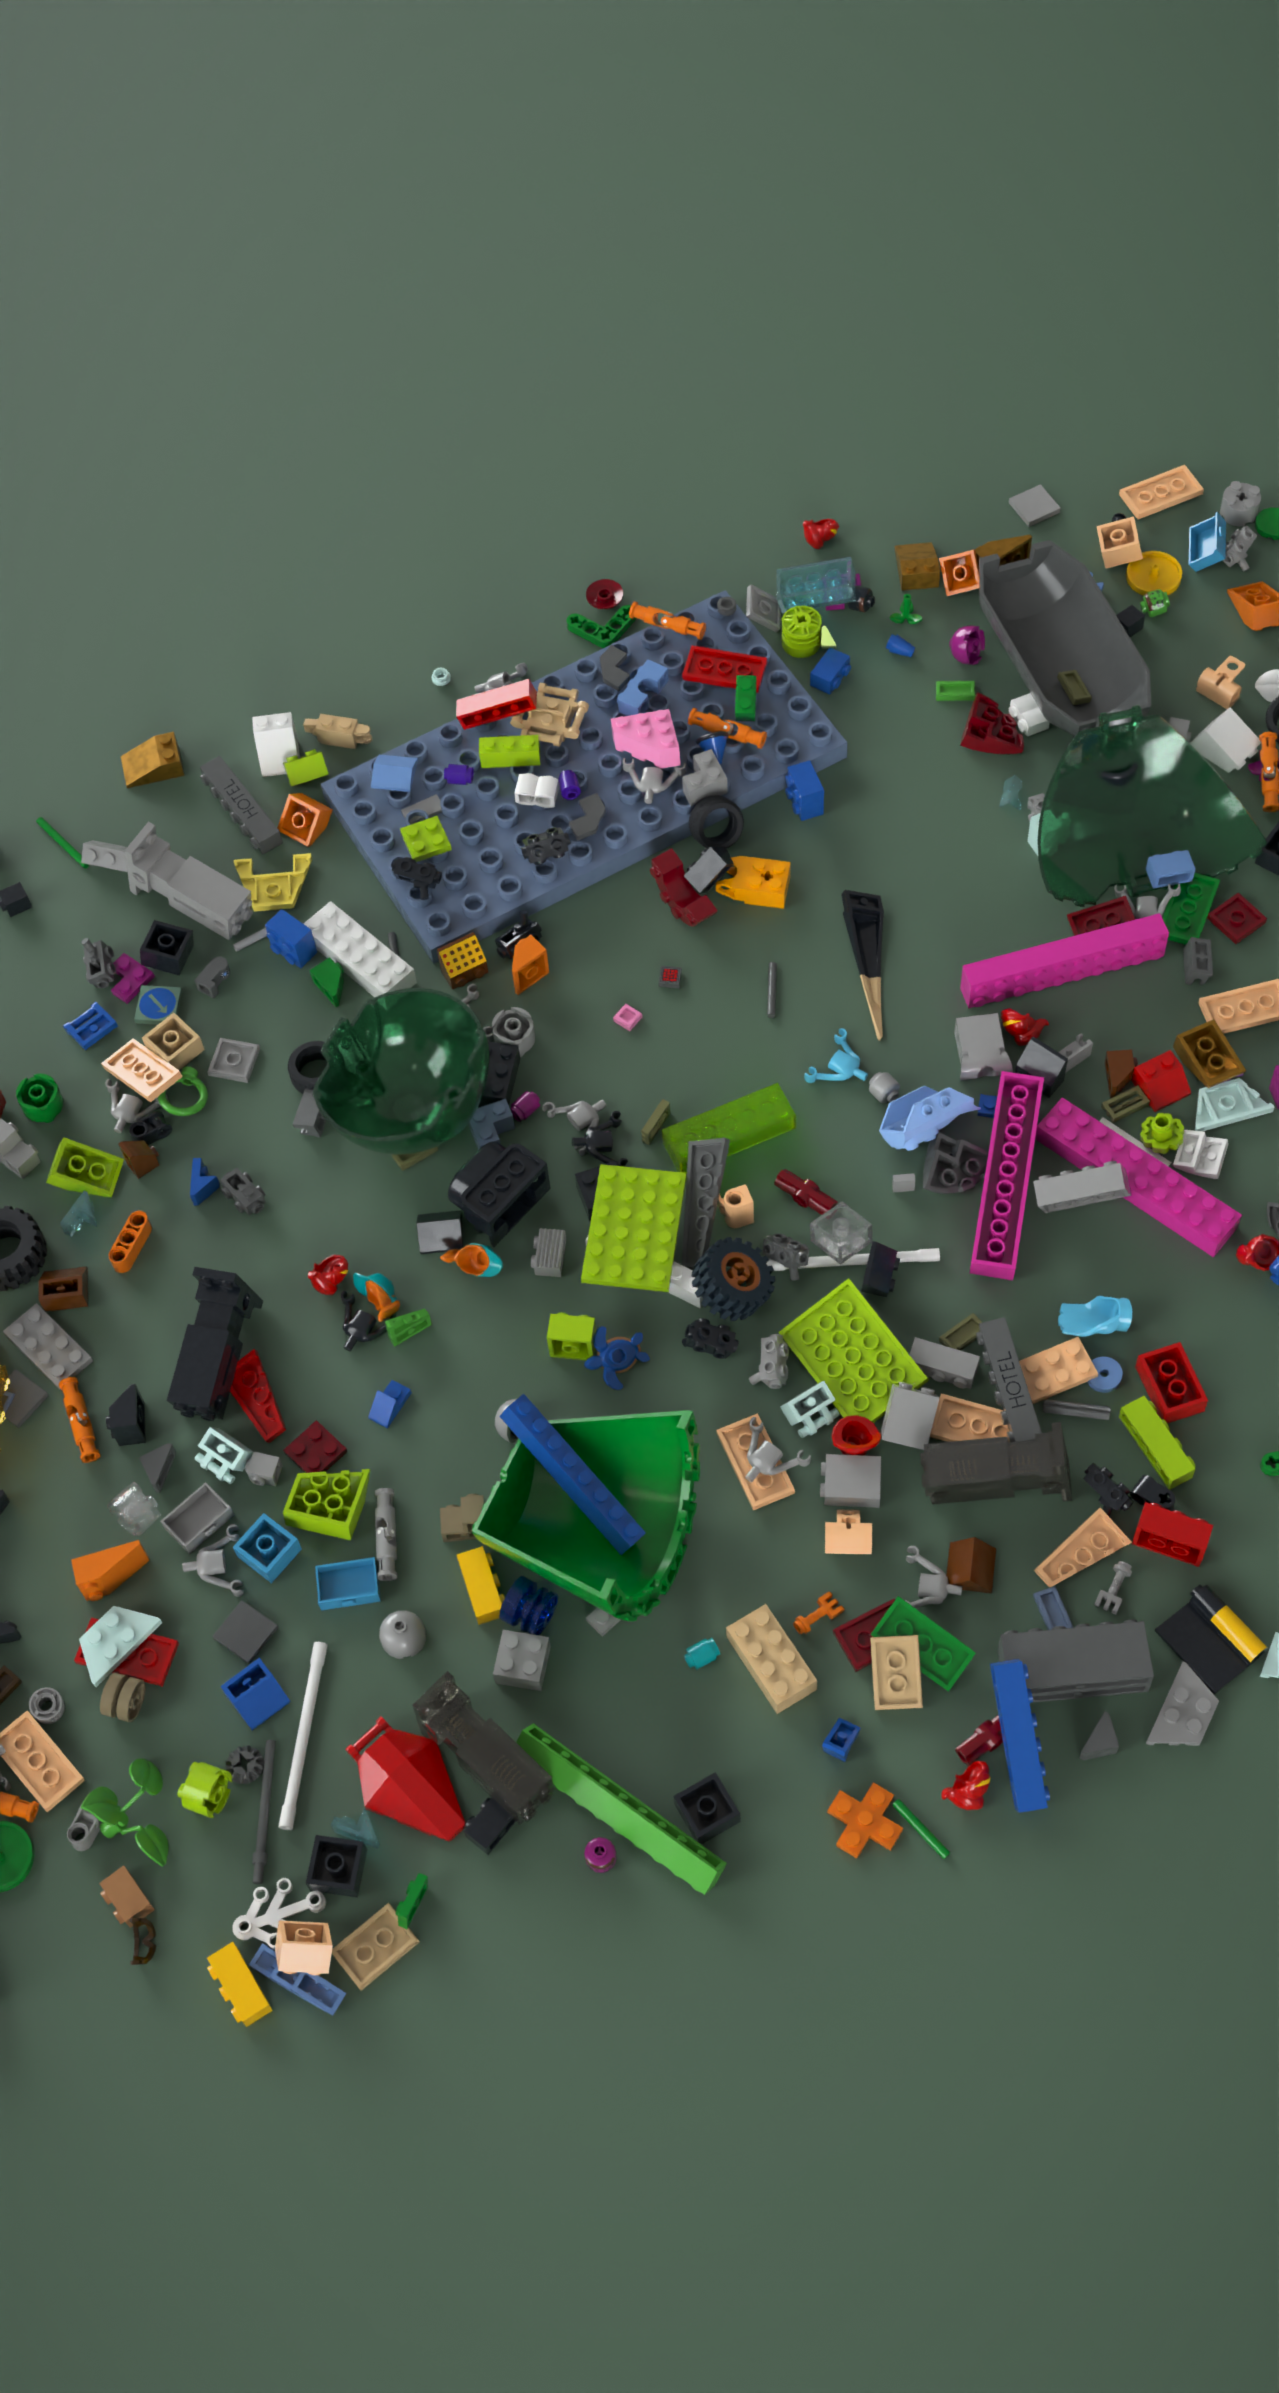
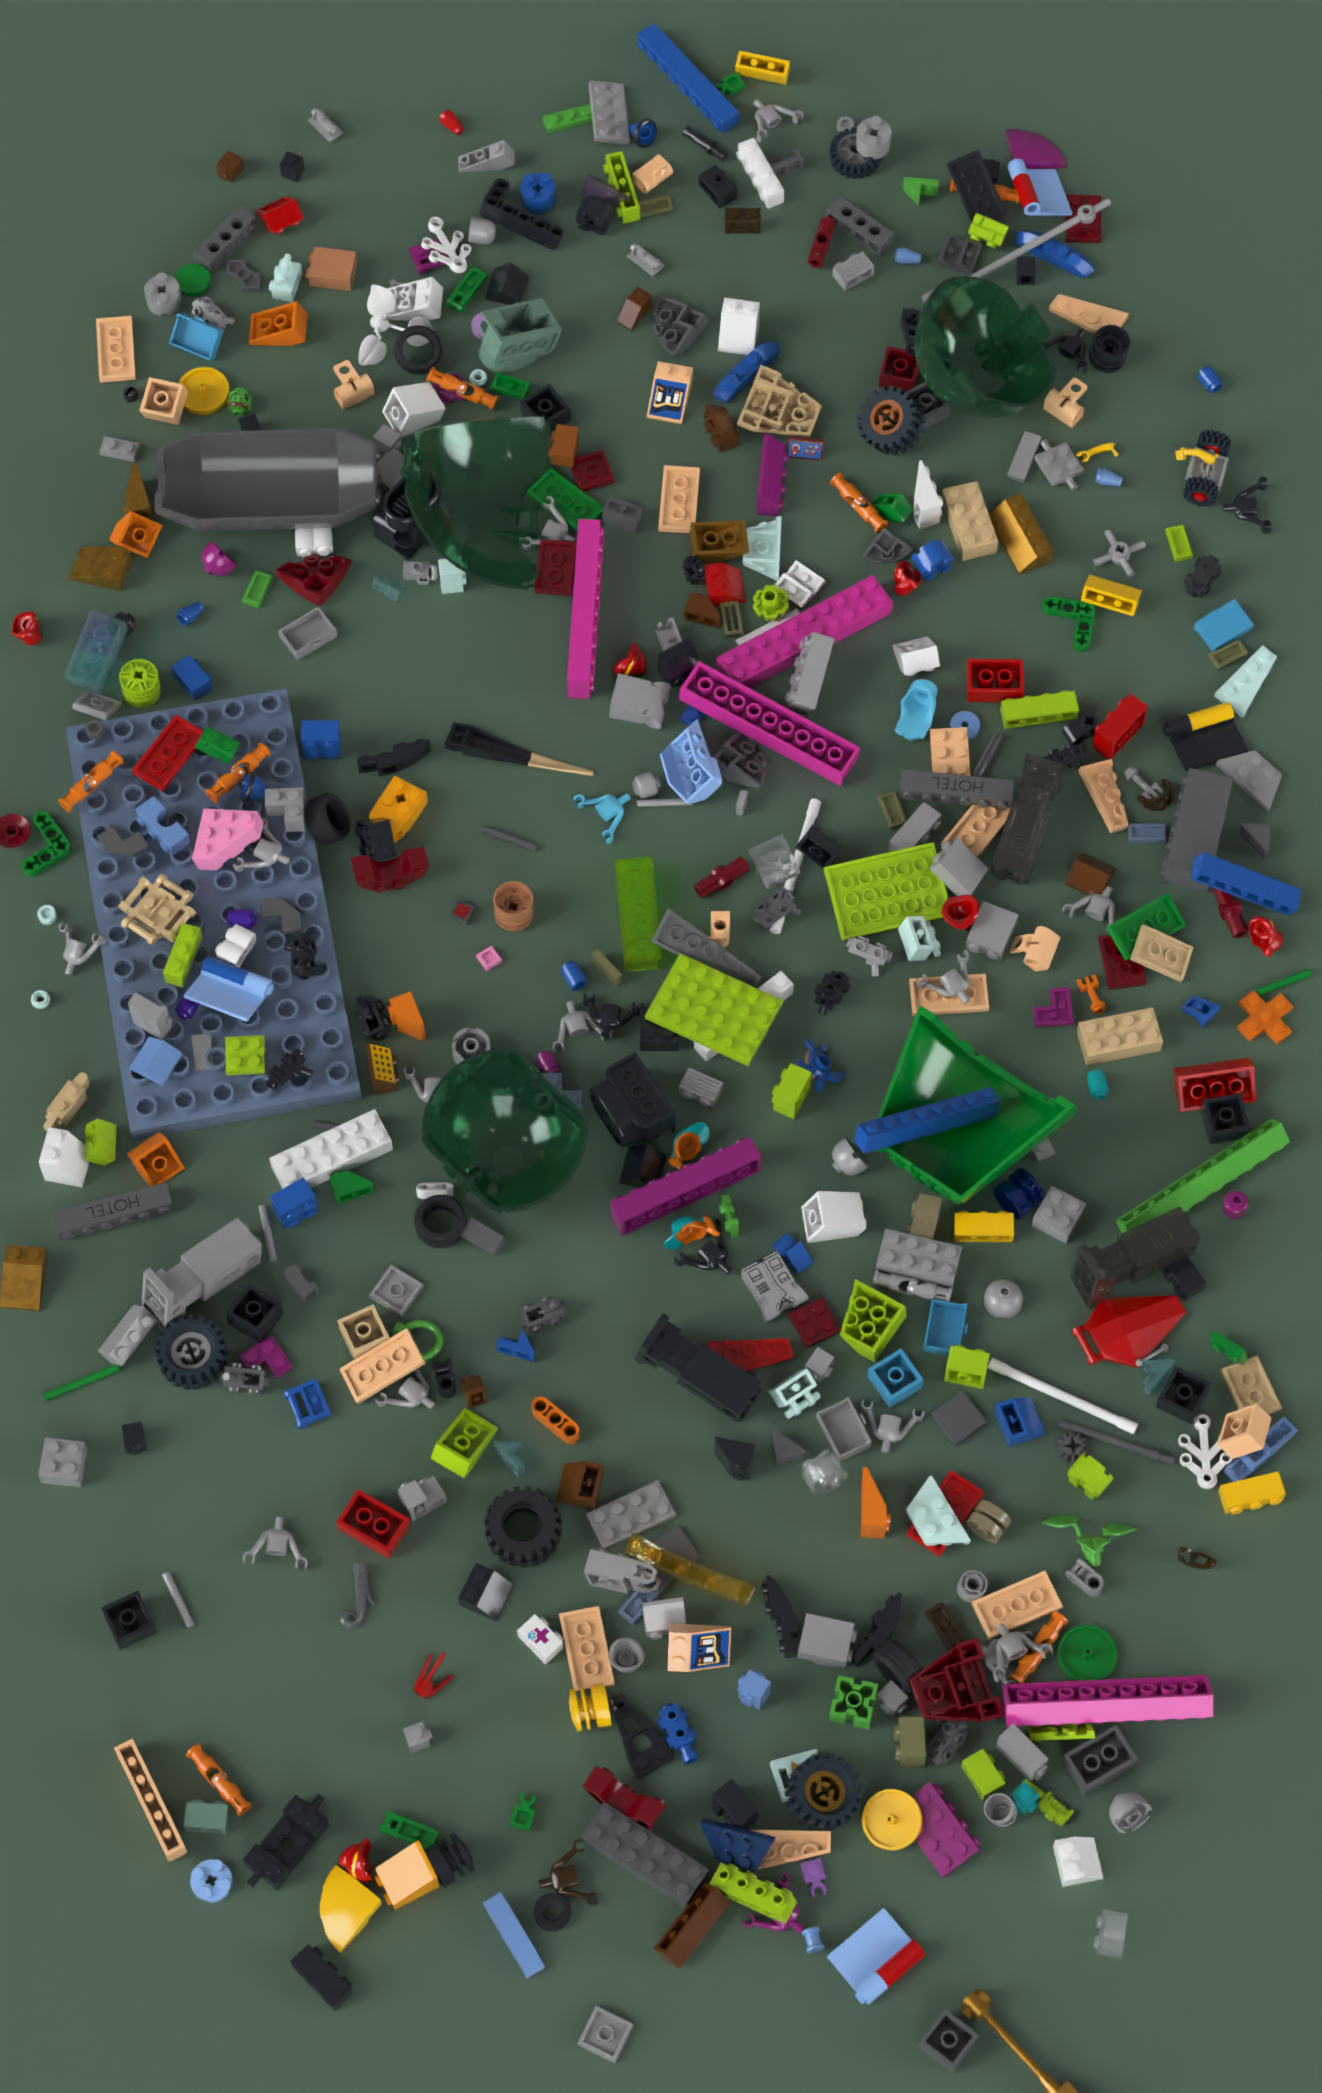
camera: 75 degrees left, 5 degrees up
(39, 1098) = (374, 1472): green brick -> none
(79, 1419) = (727, 1502): orange piece -> none
(107, 899) = (191, 1332): none -> black wheel
(126, 1896) = (1155, 1560): medium nougat brick -> none
(157, 1003) = (308, 1340): tile -> none
(276, 889) = (224, 1205): light yellow wing -> none
(300, 1616) = (966, 1366): none -> lime brick
(328, 1274) = (652, 1263): red hair -> none
(340, 1393) = (772, 1285): none -> light grey piece
(397, 1830) = (1164, 1348): none -> light grey hinge
(418, 1529) = (919, 1258): none -> light grey brick
(425, 1271) = (685, 1186): none -> magenta brick
(427, 742) = (150, 1016): none -> light grey container
(442, 1429) = (833, 1216): none -> white slope
(485, 798) = (229, 989): none -> light blue door
(496, 704) = (129, 947): brick -> none
(531, 652) = (47, 914): none -> light aqua tile
(634, 1095) = (574, 976): none -> blue brick
(688, 1012) = (513, 906): none -> nougat wheel
(723, 1289) = (790, 952): black wheel -> none
(752, 1785) = (1212, 1081): none -> red slope
(780, 1585) = (1058, 1013): none -> magenta plate
(817, 864) = (401, 758): none -> black slope
(826, 639) = (164, 664): yellowish green slope -> none
(871, 1107) = (662, 802): none -> light grey bar
(906, 609) = (153, 594): green plant -> none
(924, 745) = (307, 633): none -> light grey container
(1034, 505) = (78, 451): light grey tile -> none
(1054, 531) = (119, 449): none -> light grey plate
(1074, 687) = (301, 496): olive tile -> none
(1100, 1617) = (1146, 802): none -> dark brown helmet
(1163, 1044) = (697, 566): none -> black gear
(1166, 1295) = (916, 656): none -> white slope
(1170, 868) = (530, 496): medium blue brick -> none
(1247, 878) = (564, 445): none -> dark orange brick

